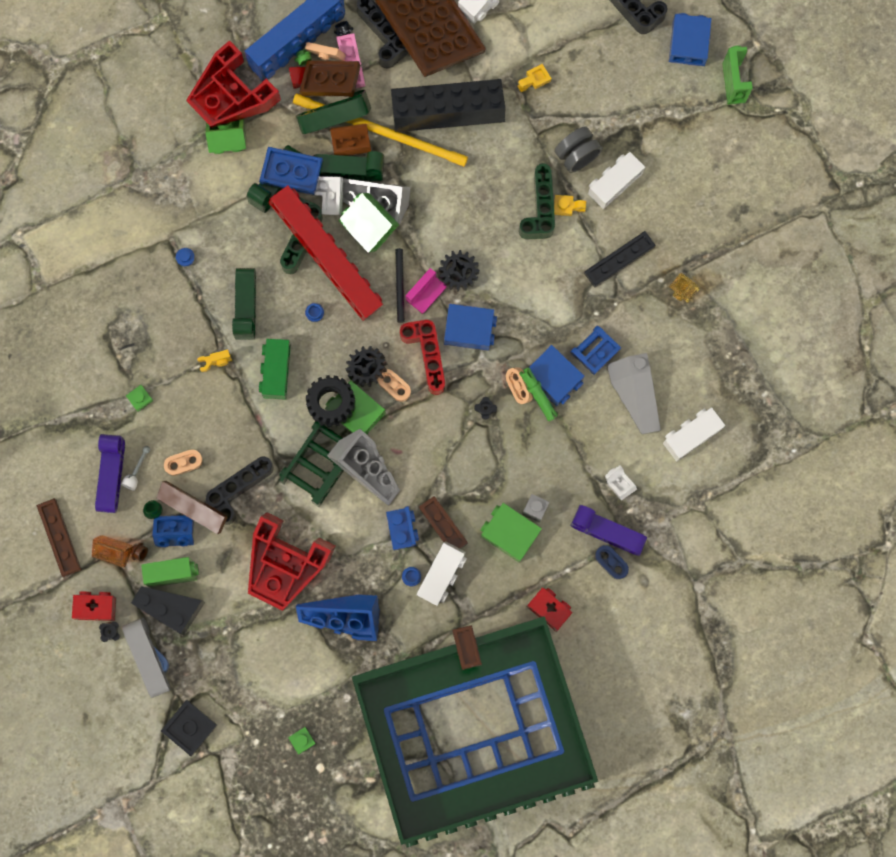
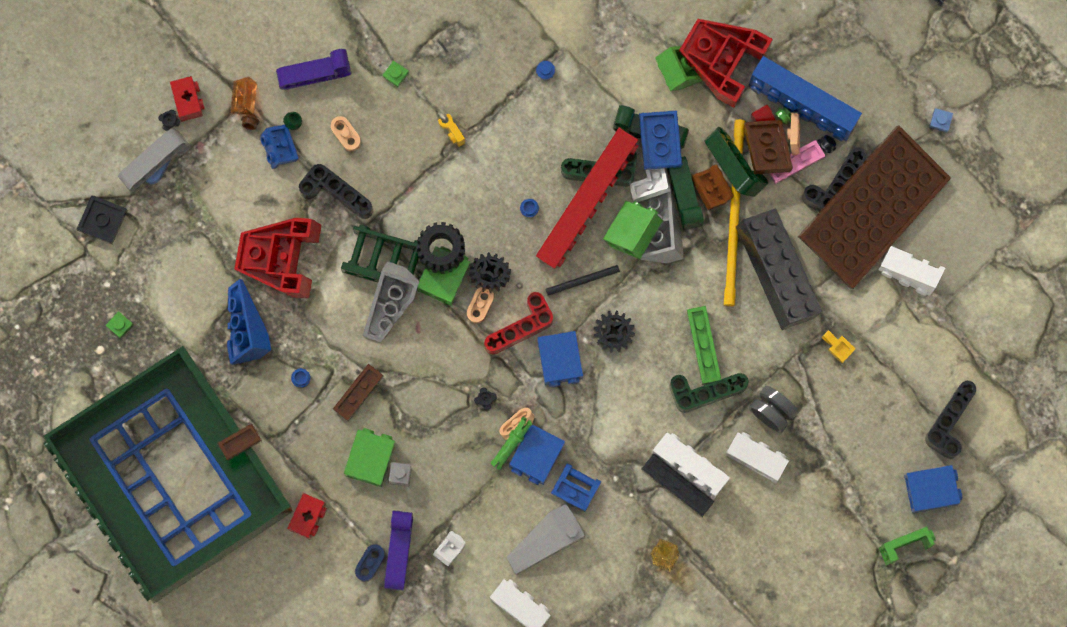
camera: 75 degrees right, 0 degrees up
(59, 537) = (242, 46): reddish brown tile -> none
(130, 481) = (314, 92): hinge -> none
(169, 572) = (237, 154): bright green brick -> none
(169, 608) = (204, 165): black wedge -> none
(191, 507) = (304, 154): tile -> none
(245, 304) = (514, 141): dark green beam -> none
(275, 369) = (461, 188): green brick -> none
(401, 528) = (343, 355): blue bracket -> none
(425, 291) = (583, 306): dark pink panel -> none
(442, 574) = (309, 404): white brick -> none
(497, 195) = (703, 345): none -> bright green plate
(565, 205) = (716, 416): yellow plate -> none
(608, 238) = (691, 465): none -> white wedge

